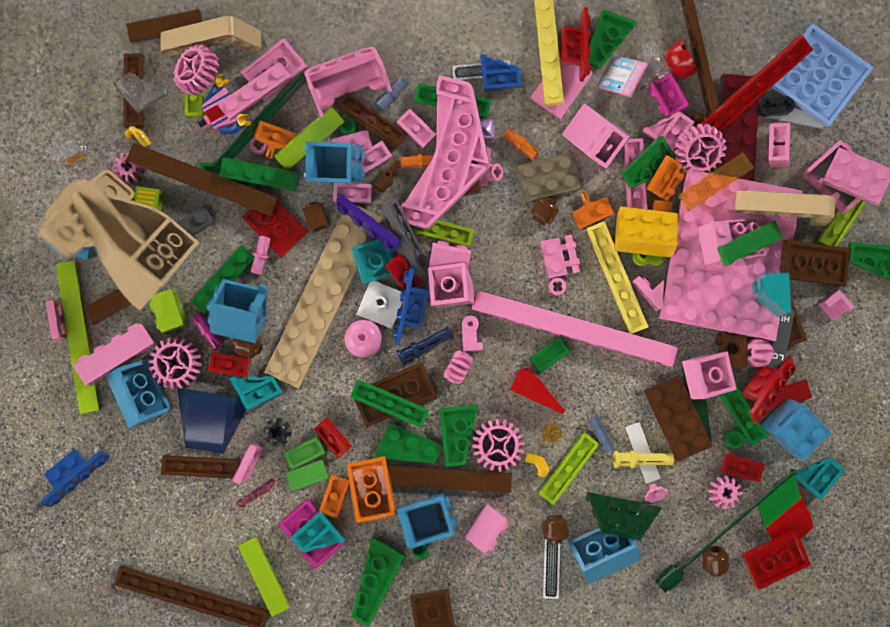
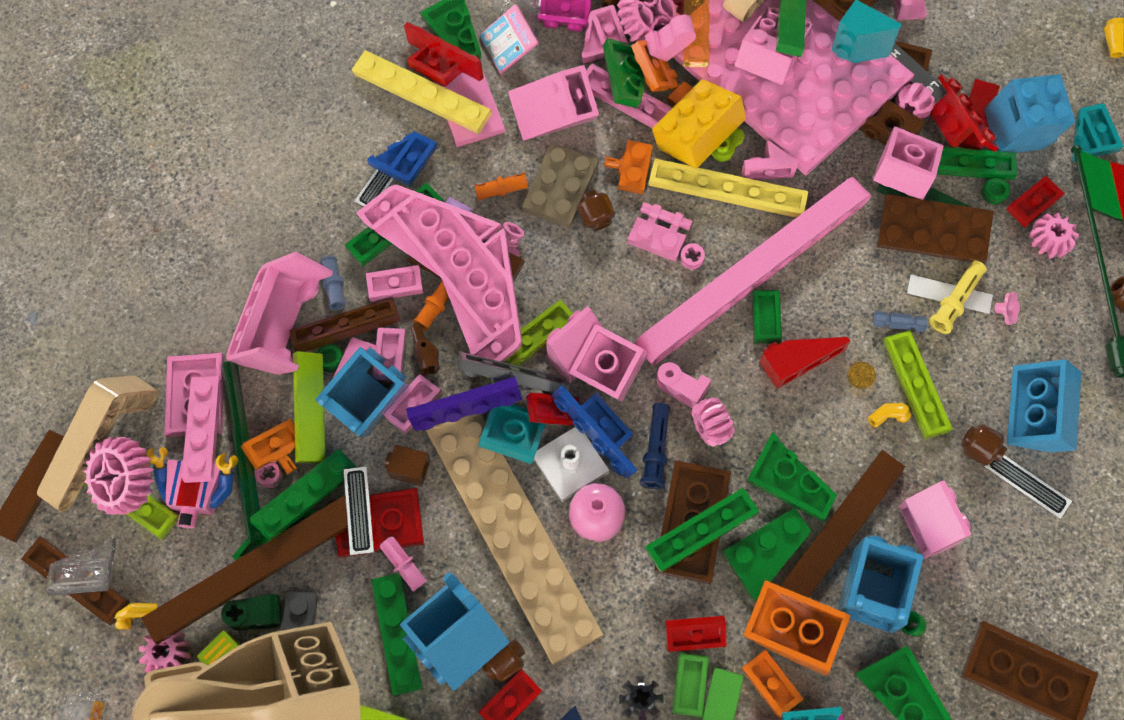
camera: 55 degrees left, 15 degrees down
(181, 198) = (258, 613): none -> dark green piece
(202, 324) = (447, 699): dark pink pin -> none
(255, 390) = (568, 690): teal wing -> none
(270, 210) = (358, 511): none -> sticker
(508, 458) = (859, 437): bright pink gear -> none
(622, 516) = (1015, 359): dark green wing -> none
(688, 175) = (671, 38): none -> bright pink leg

